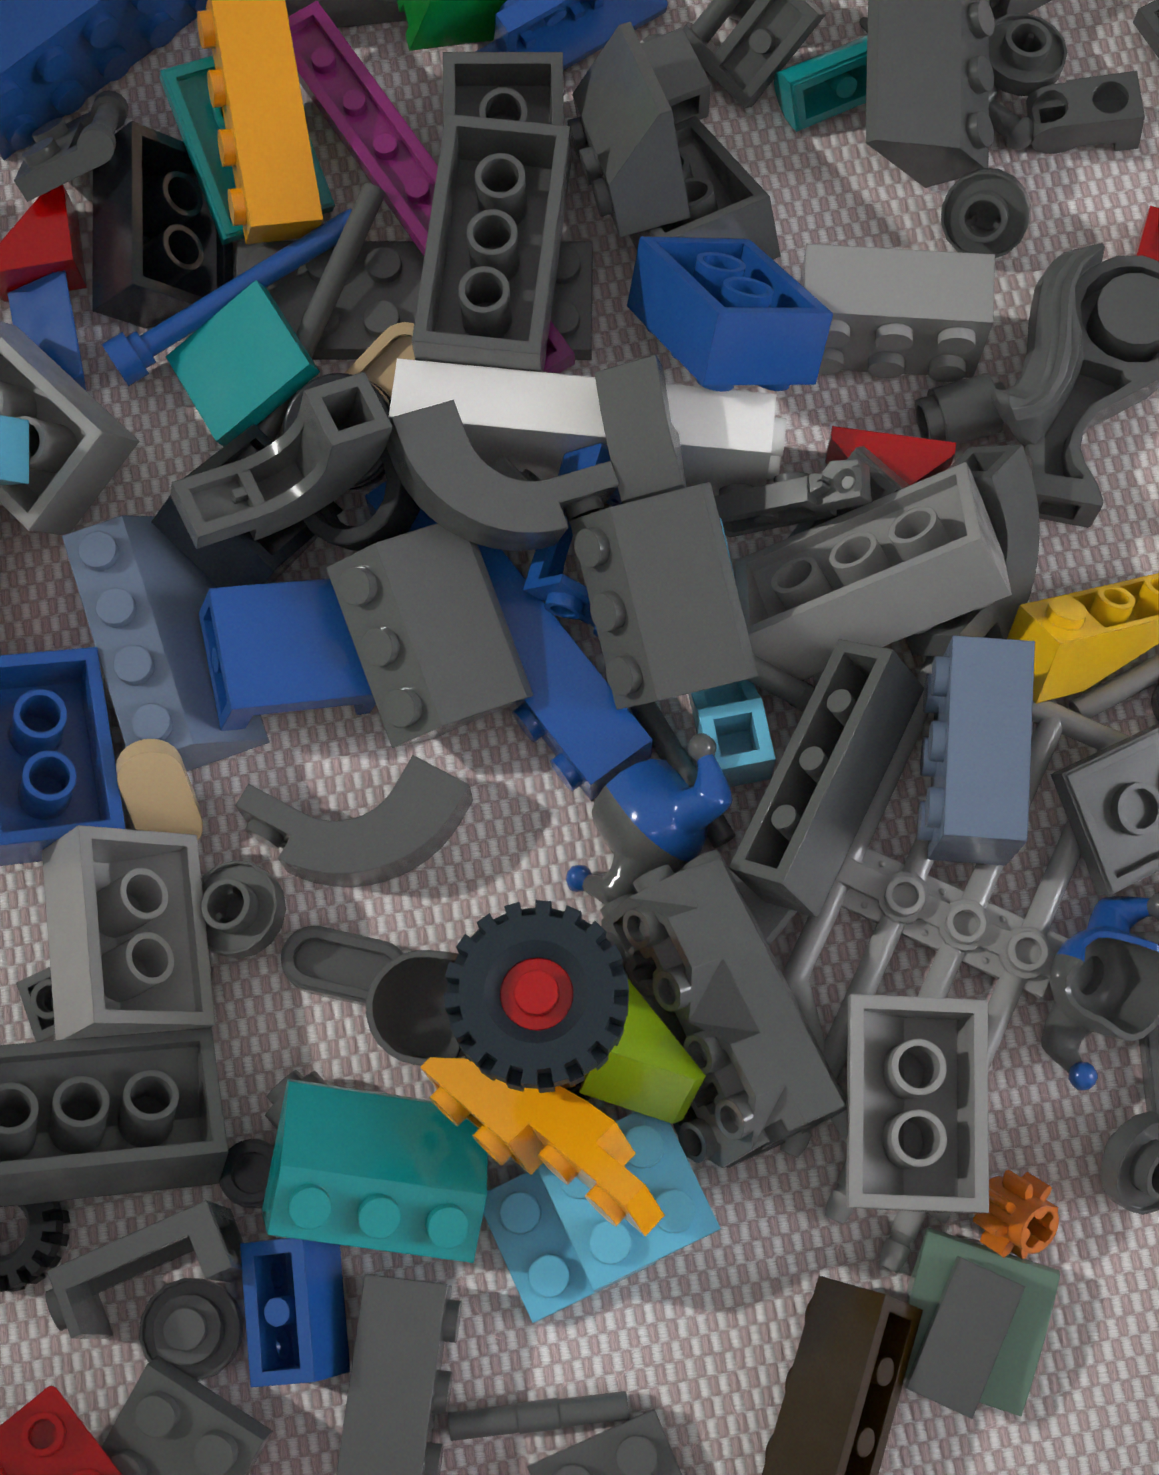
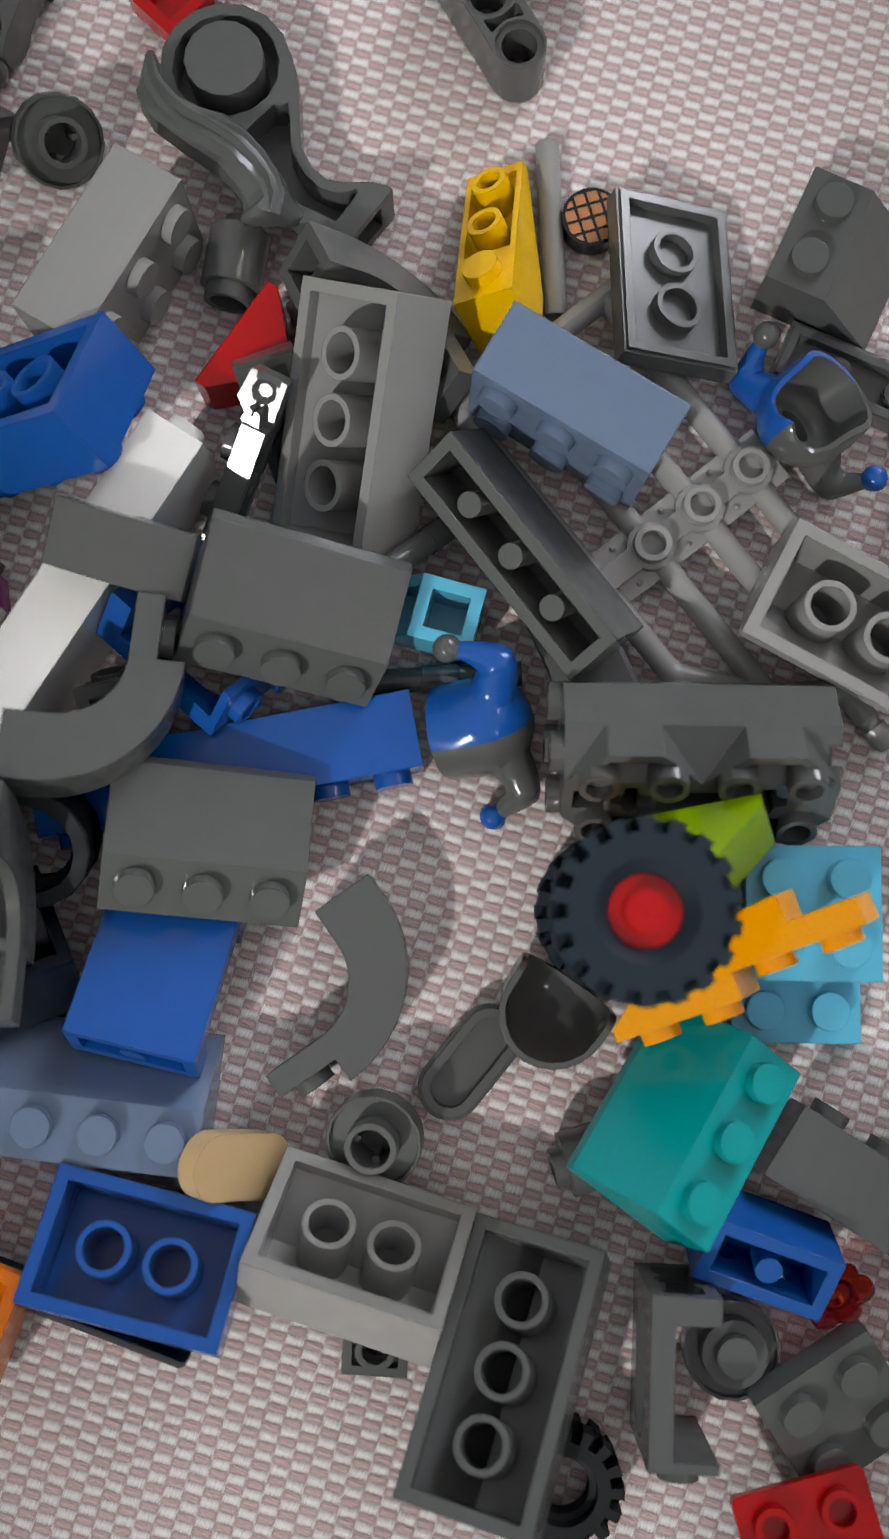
camera: 65 degrees left, 10 degrees up
(247, 1172) = (614, 1231): black tile -> none
(283, 1409) = (847, 1299): none -> clear red plant

